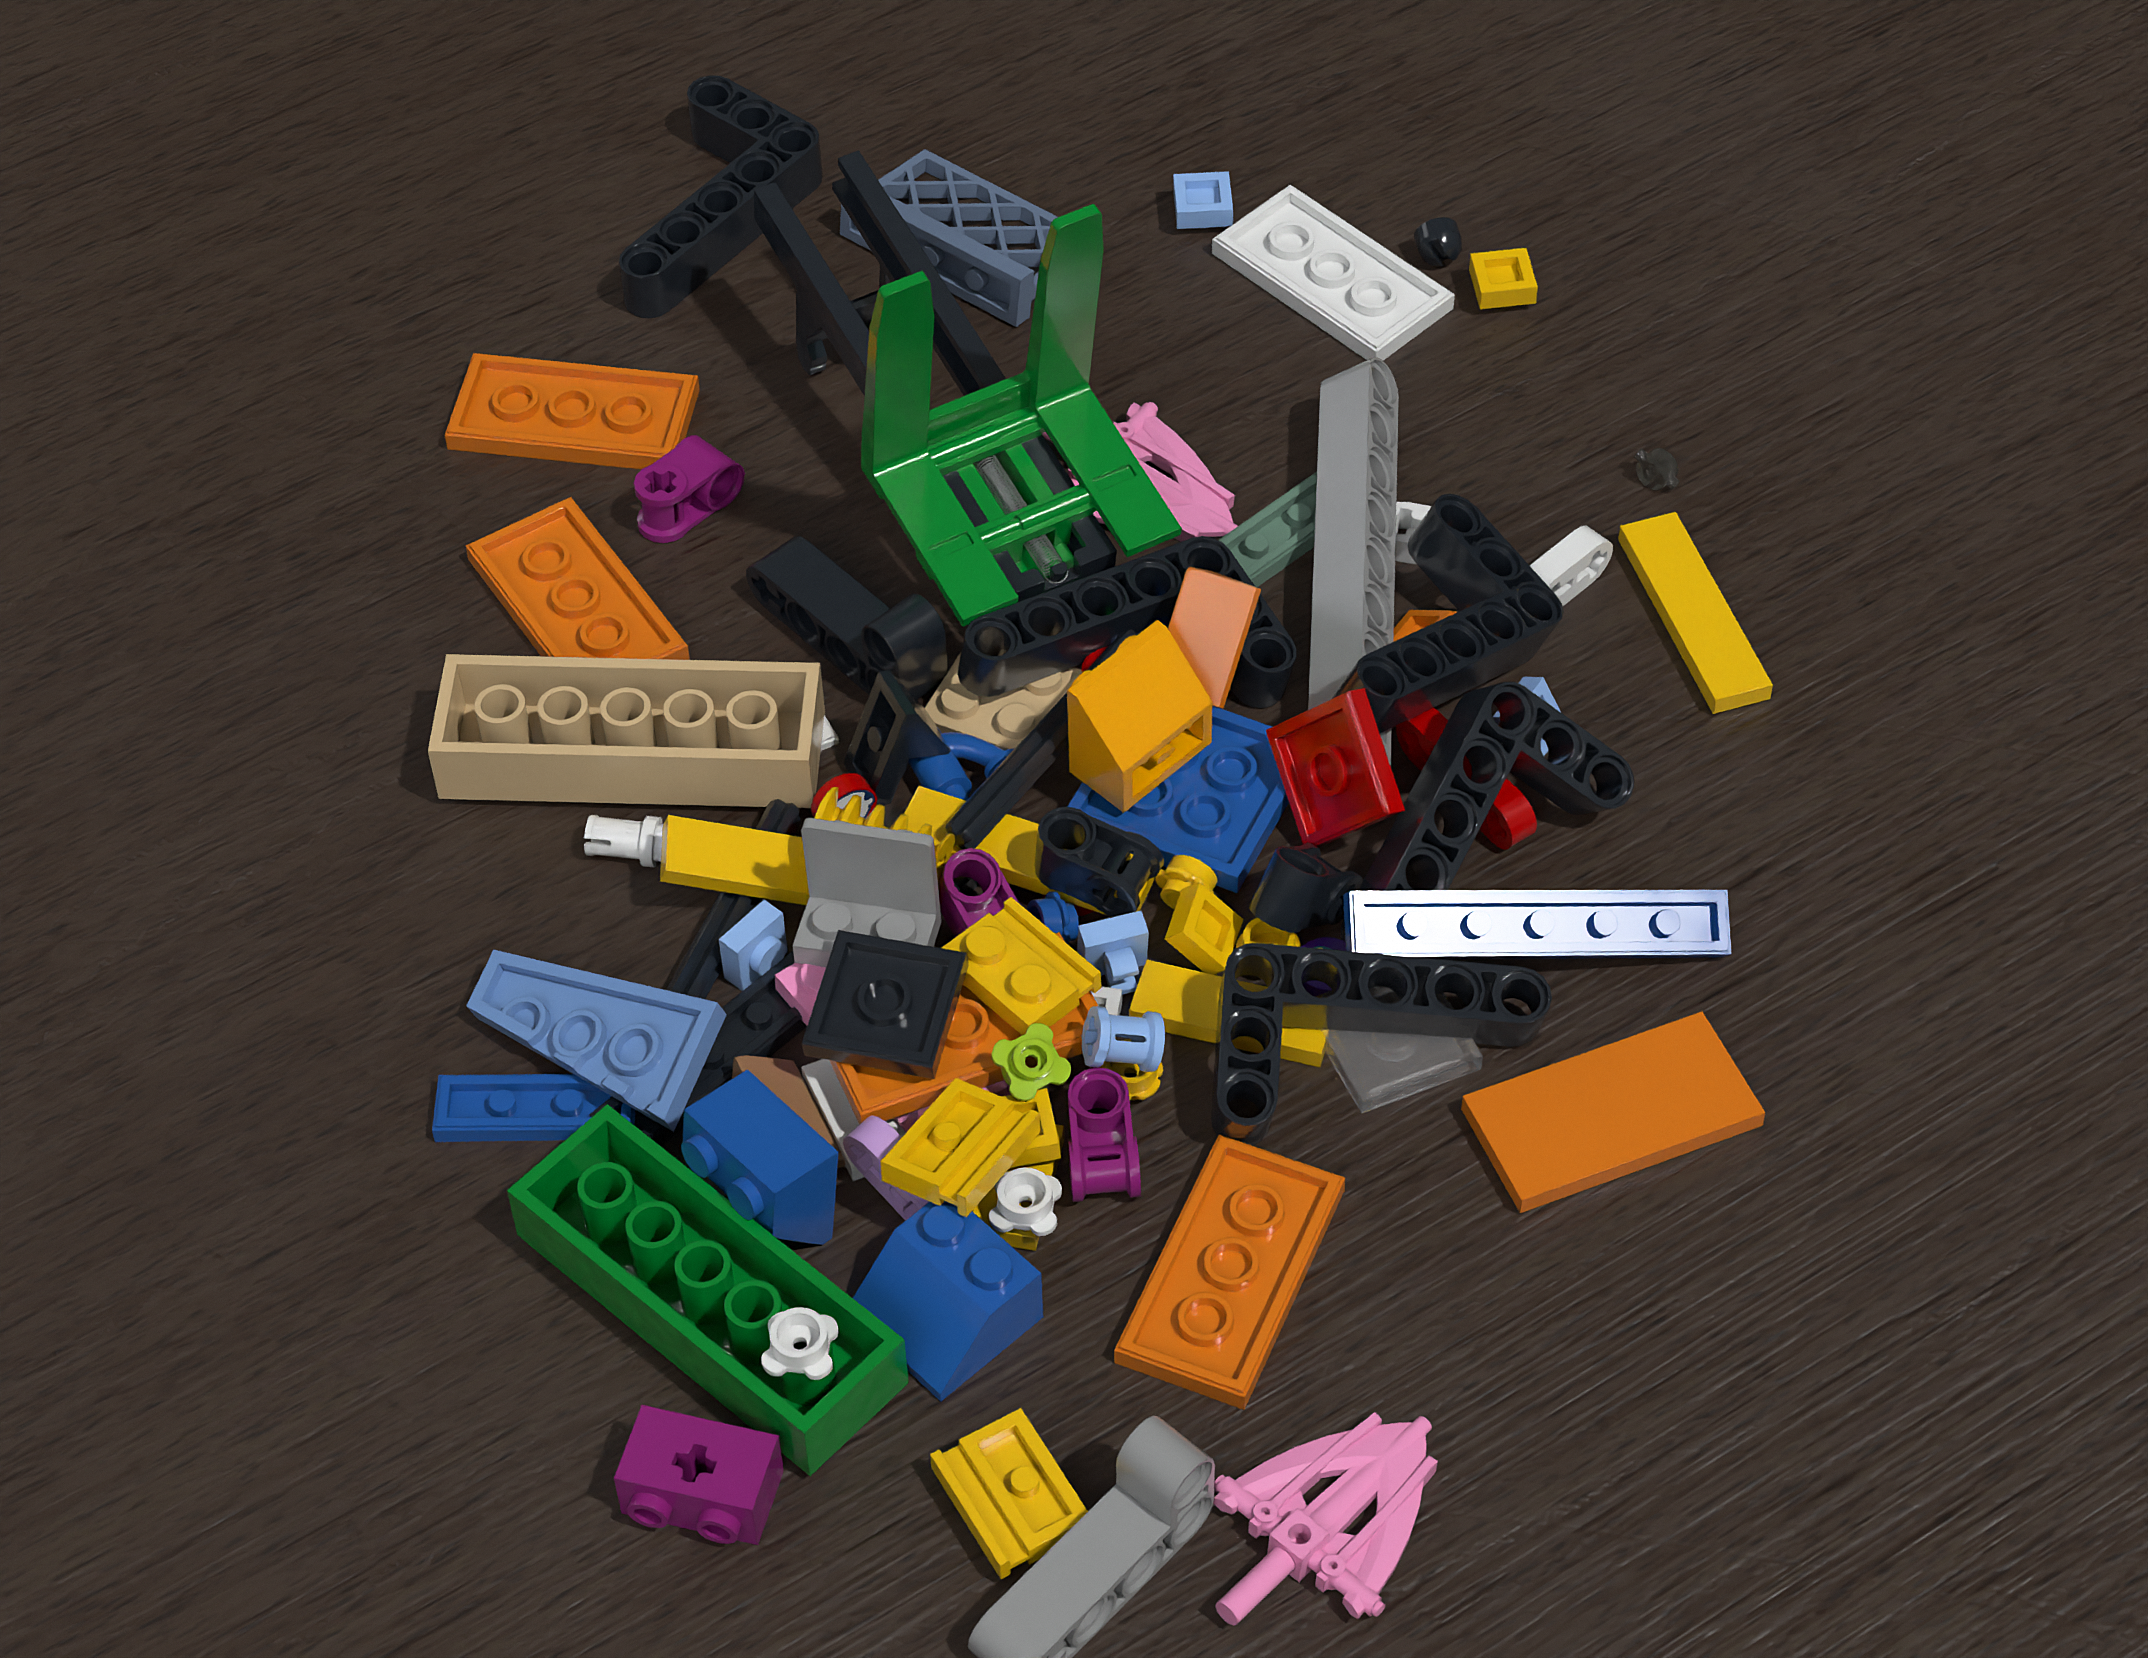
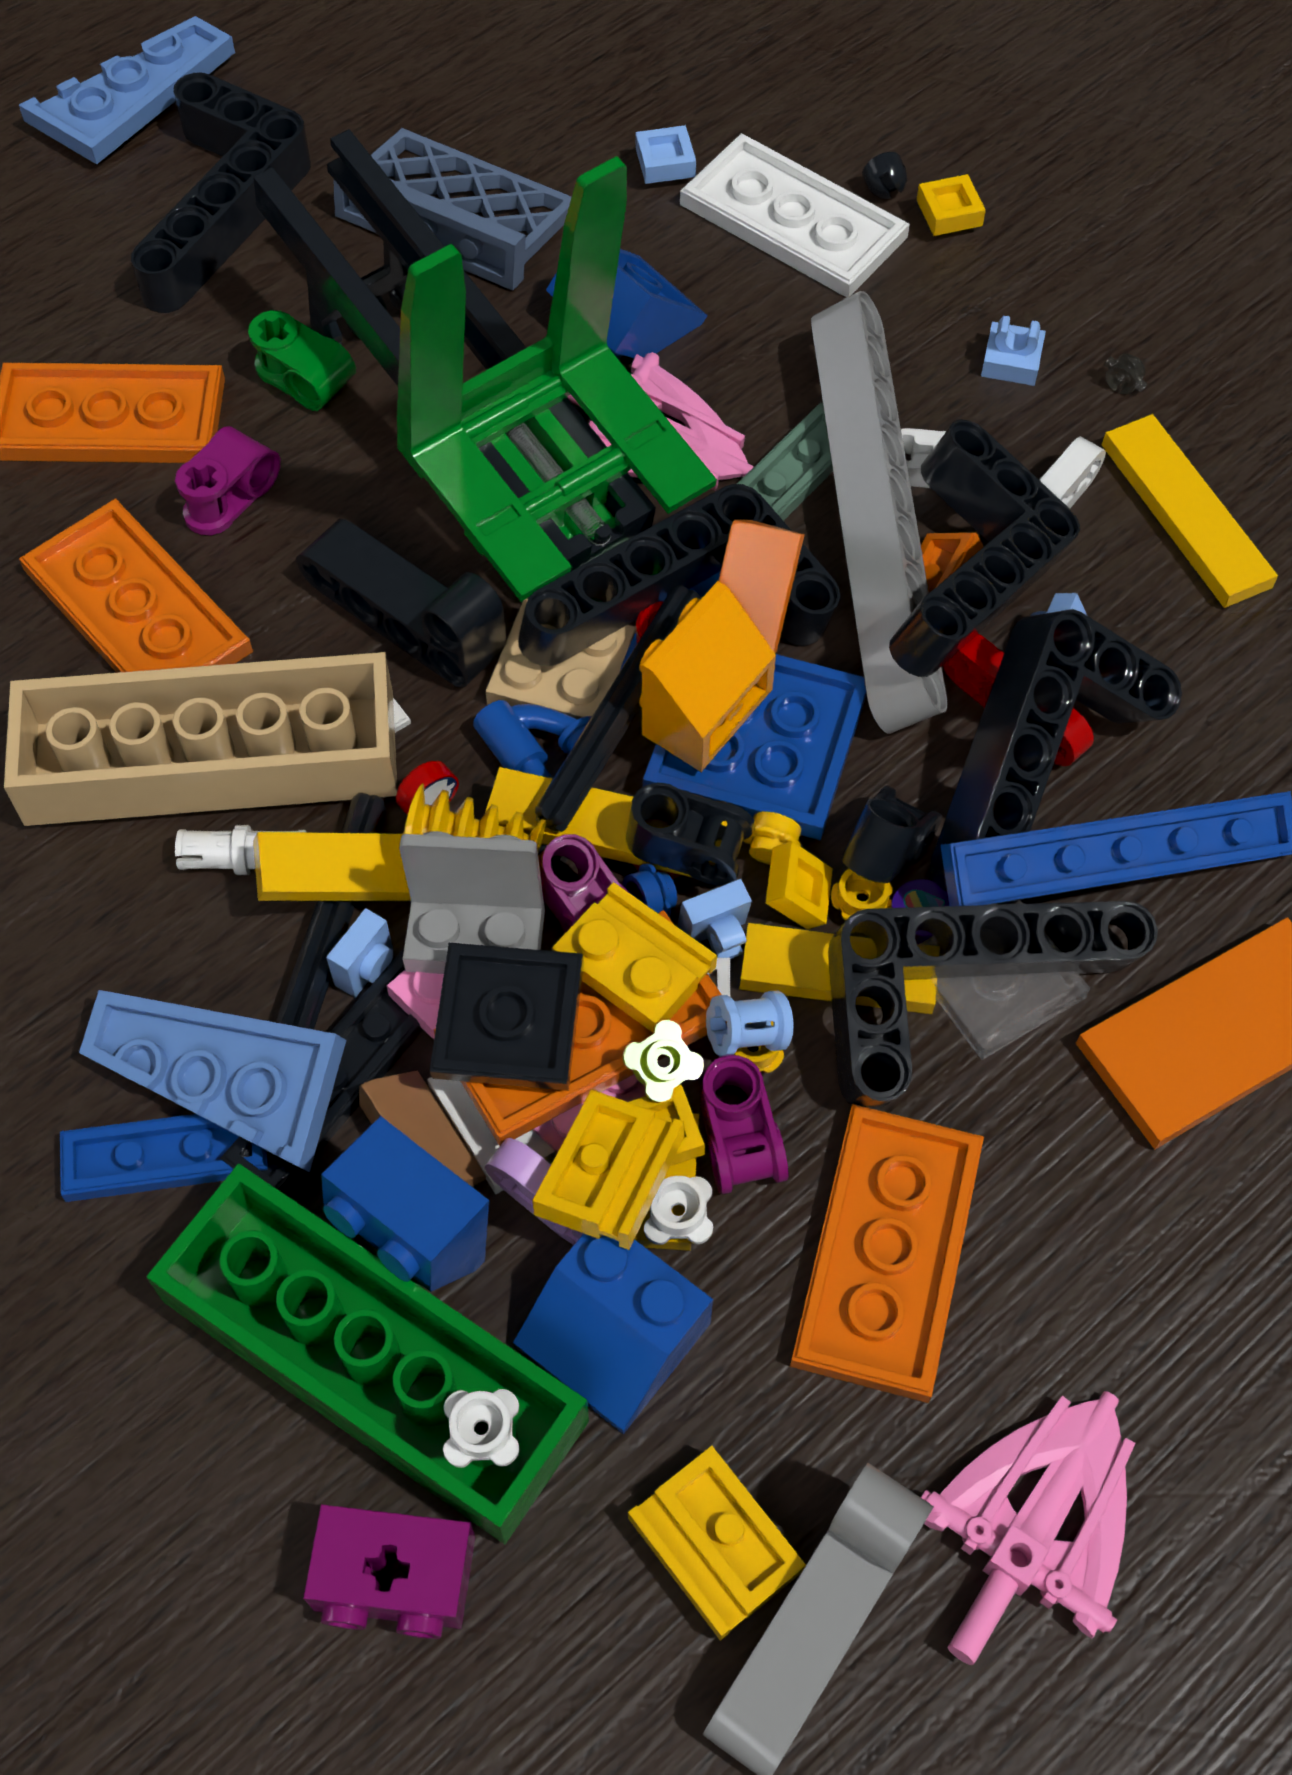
camera: 10 degrees left, 10 degrees up
(641, 88) = (129, 91): none -> medium blue wing
(778, 376) = (299, 359): none -> green piece
(889, 735) = (463, 717): black slope -> none
(1142, 352) = (645, 309): none -> blue slope
(1335, 769) = (904, 711): red plate -> none
(1541, 436) = (1013, 352): none -> light blue tile

